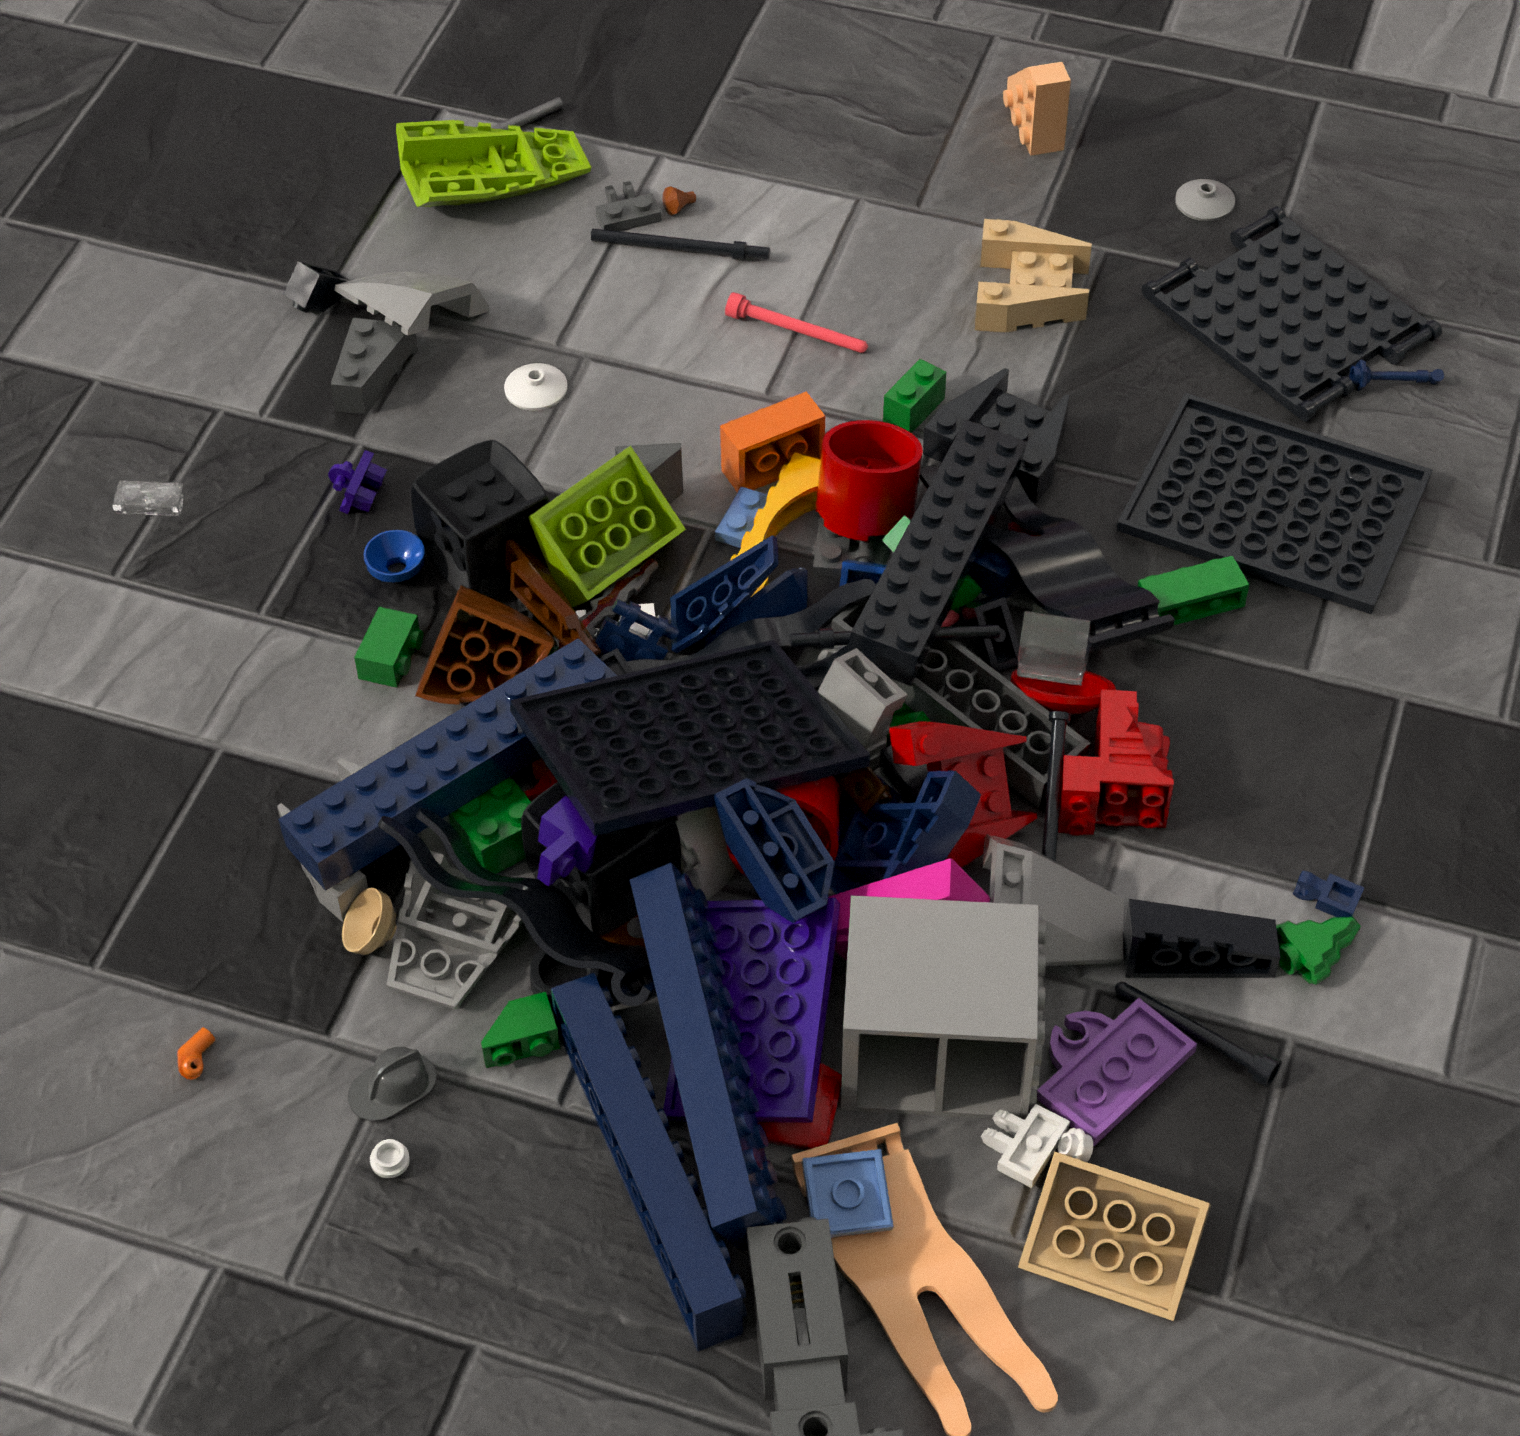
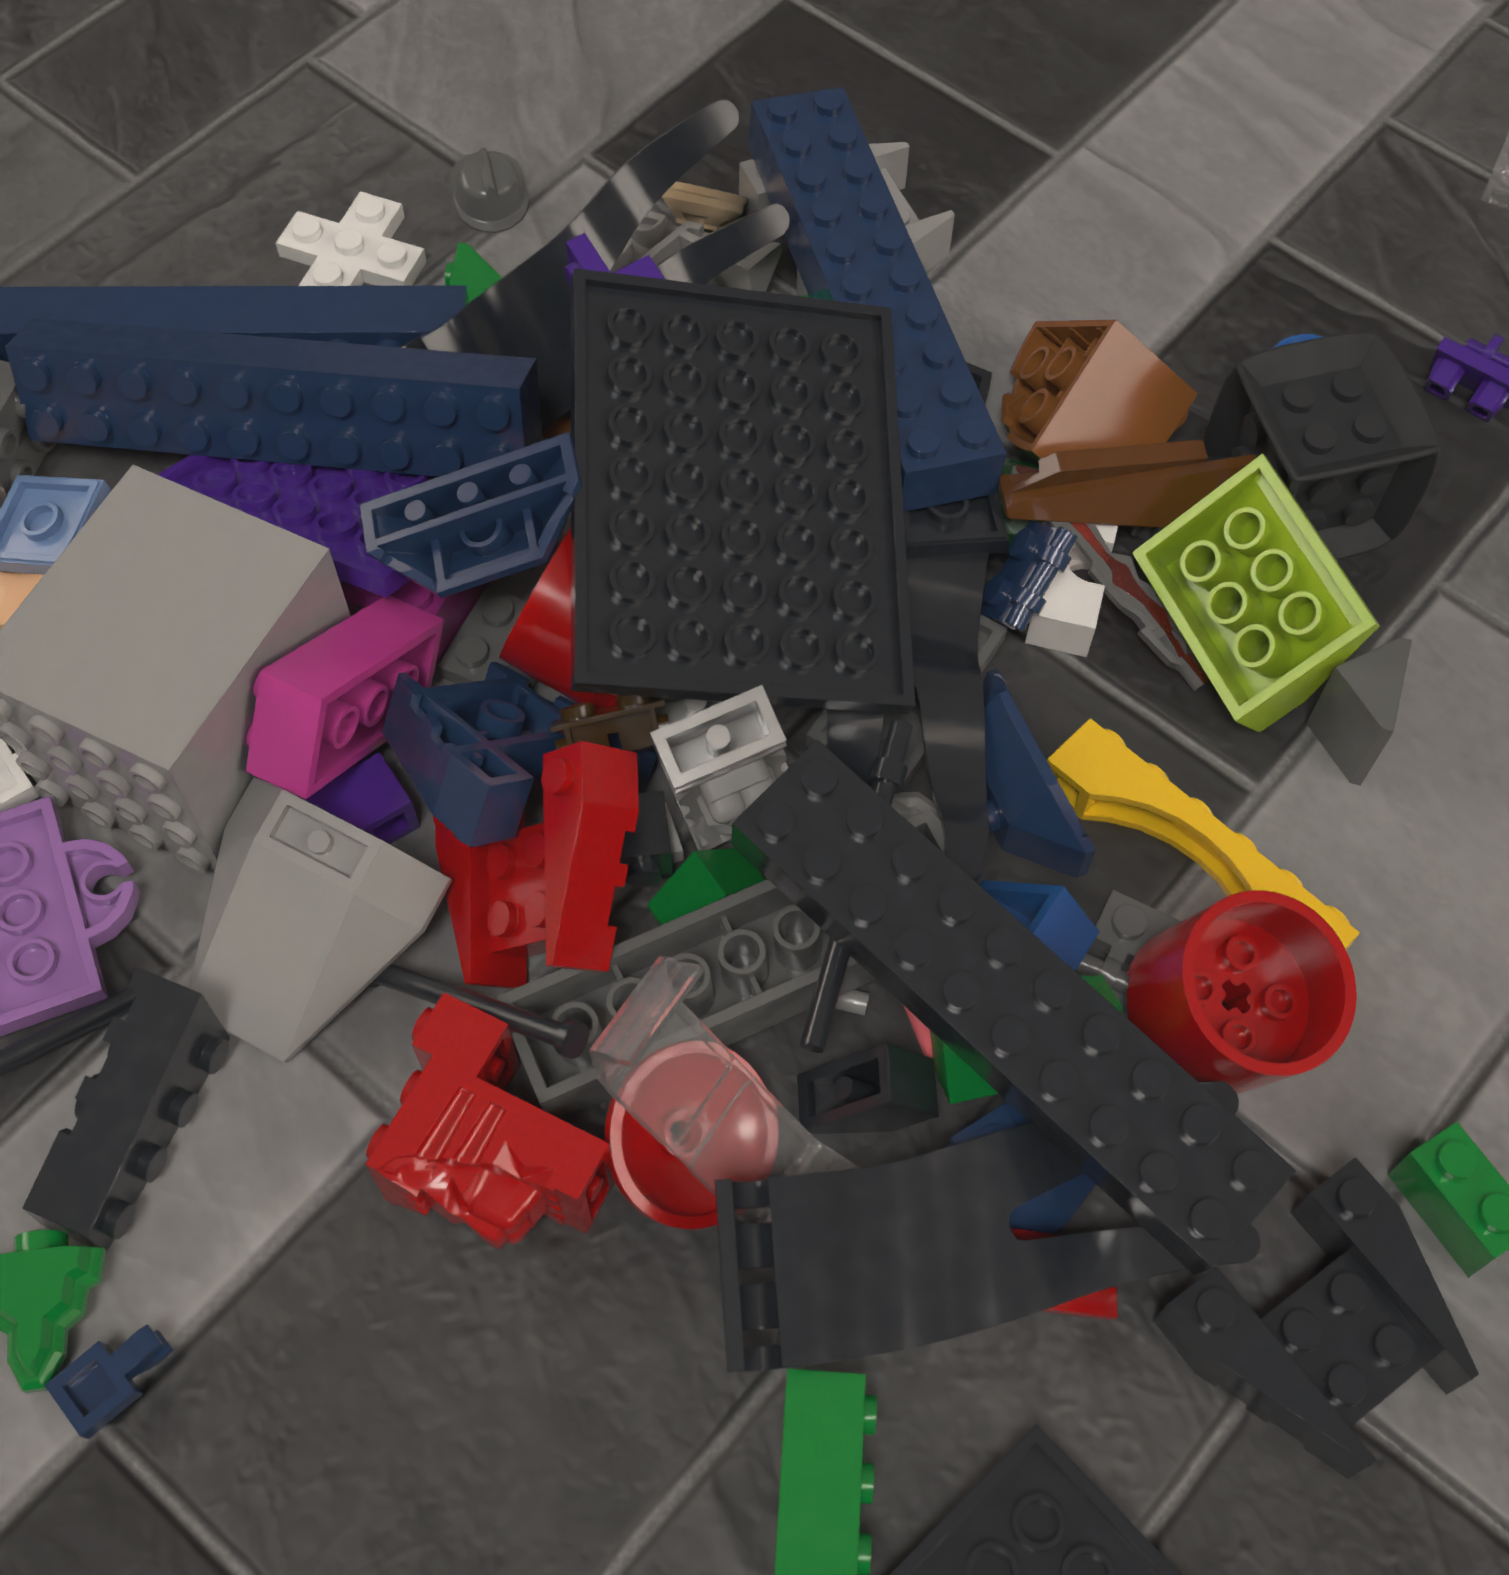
camera: 110 degrees right, 10 degrees up
(190, 1054) = (620, 35): orange arm -> none
(388, 647) = (1156, 321): green brick -> none
(389, 1158) = (391, 156): white plate -> none
(497, 1146) = (355, 248): none -> white plate
(710, 600) = (1044, 677): dark blue wedge -> none
(740, 516) = (1267, 830): medium blue plate -> none
(766, 439) = (1393, 892): orange brick -> none

